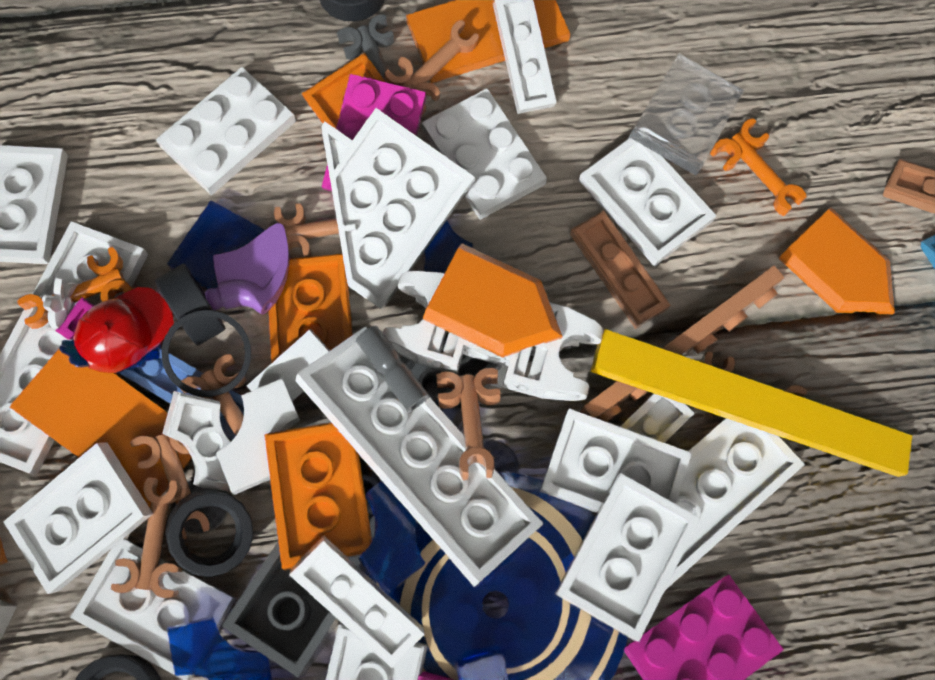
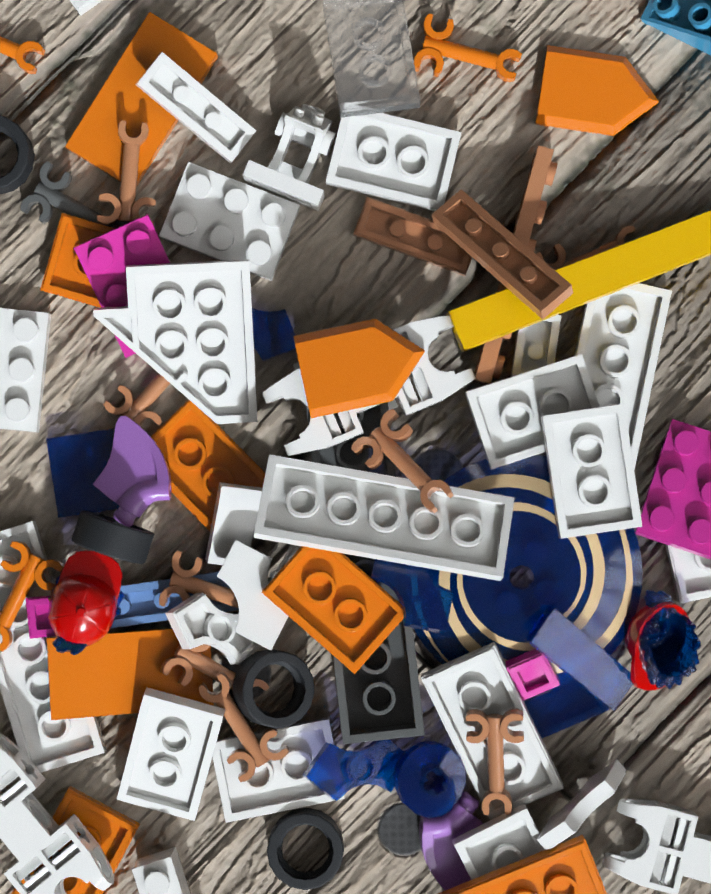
camera: 35 degrees left, 15 degrees up
(59, 304) = (17, 617): white plant -> none
(197, 392) = (193, 587): black piece -> none
(357, 601) = (425, 654): white plate -> none
(395, 373) = (323, 474): dark grey piece -> none
(588, 122) = (307, 128): none -> white tile
(685, 323) = (502, 254): none -> nougat plate

